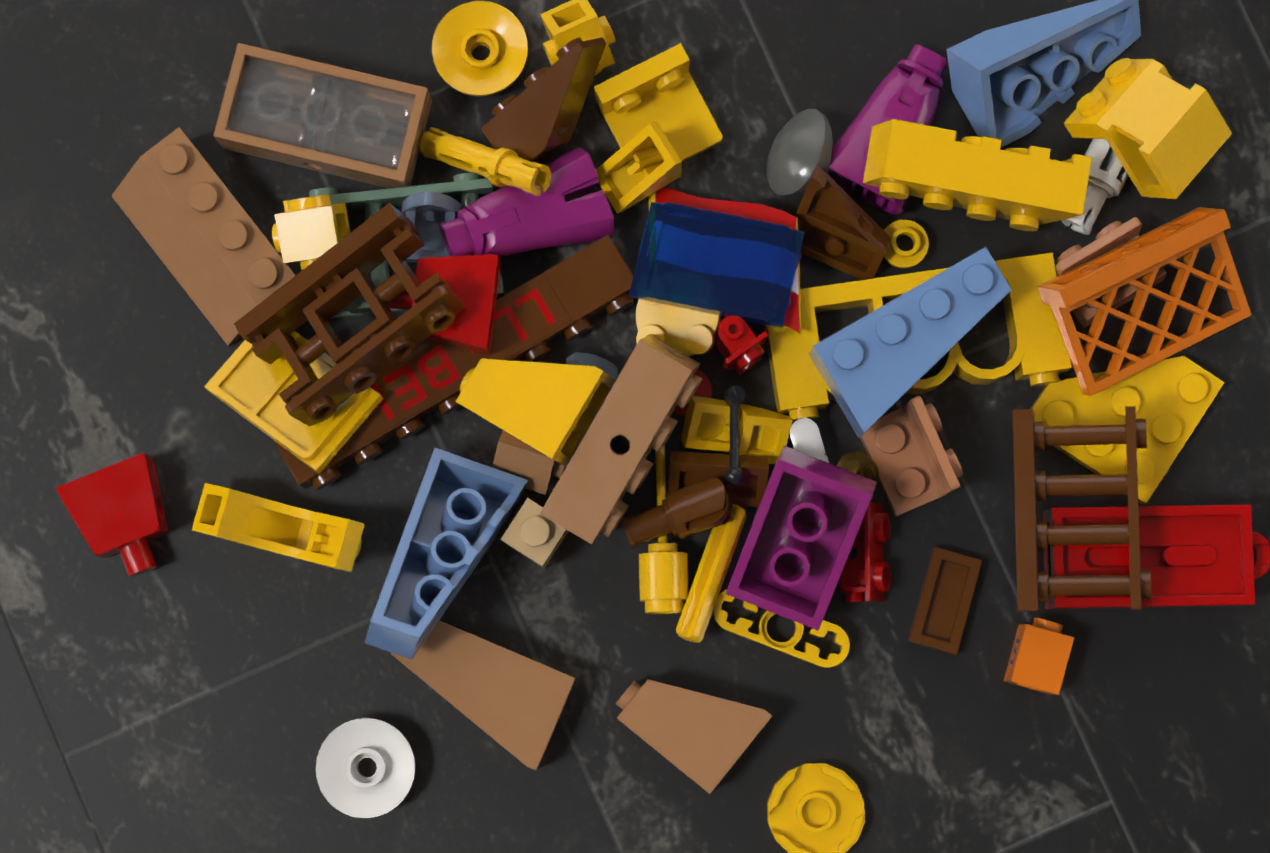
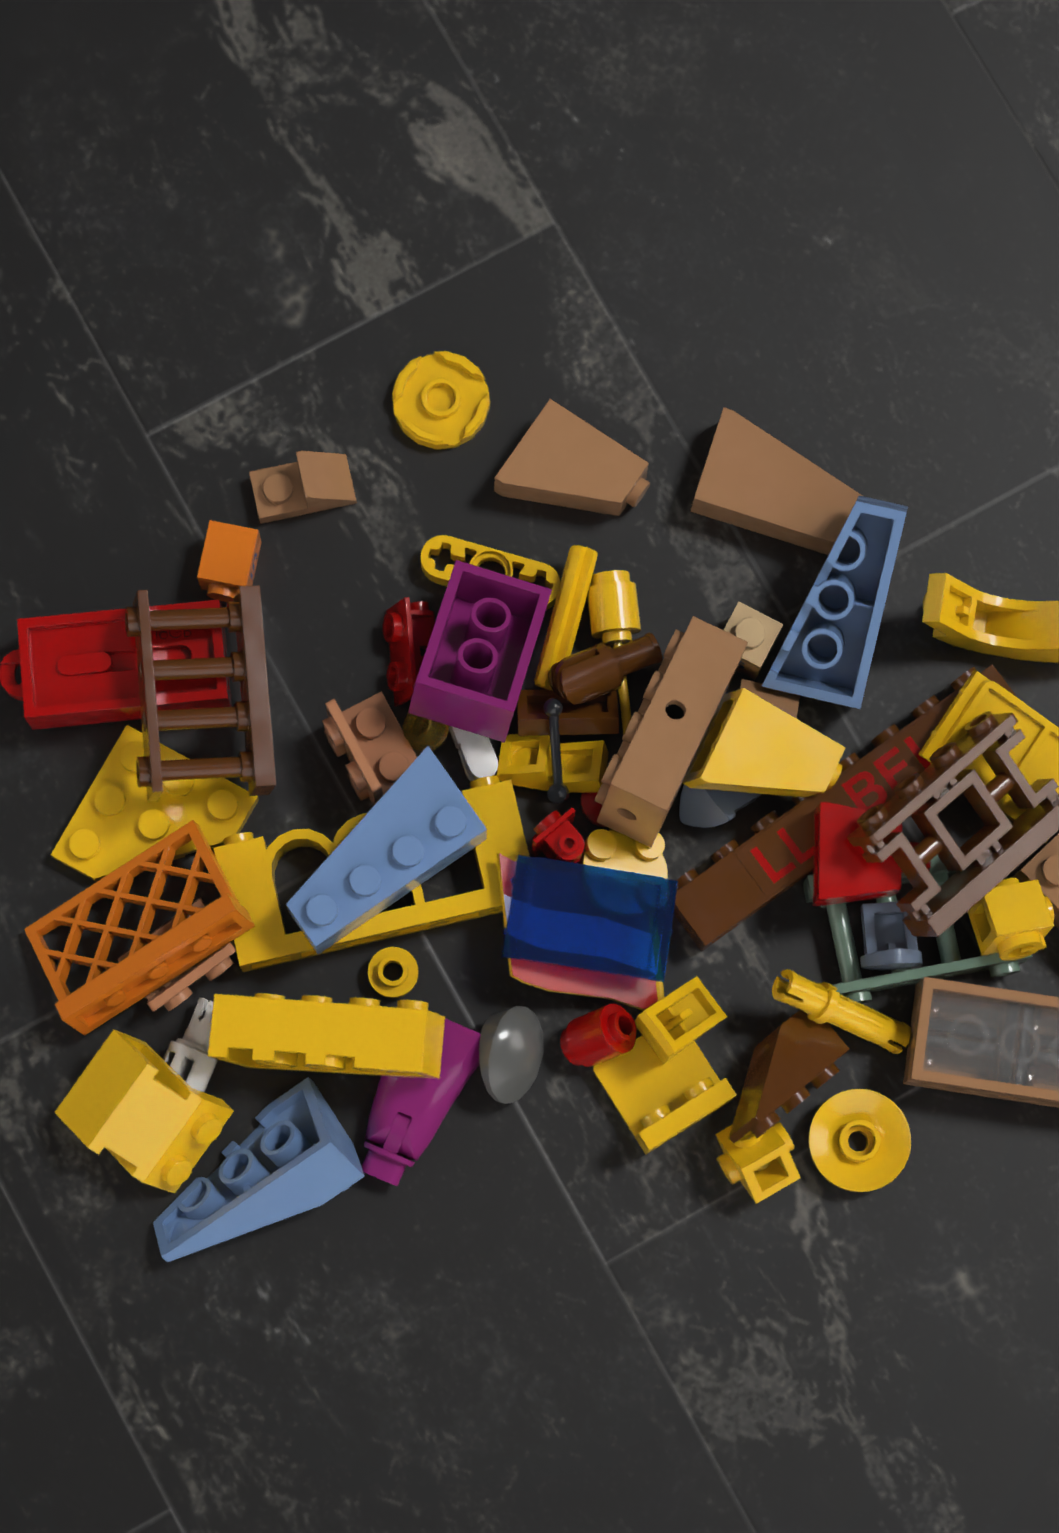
camera: 170 degrees right, 5 degrees down
(339, 768) = (896, 381): white dish -> none
(520, 222) = (811, 946): magenta piece -> none
(716, 161) = (598, 1036): none -> red brick
(839, 229) = (464, 974): reddish brown wing -> none
(944, 601) = (326, 613): reddish brown tile -> none
(960, 732) = (303, 487): none -> medium nougat slope

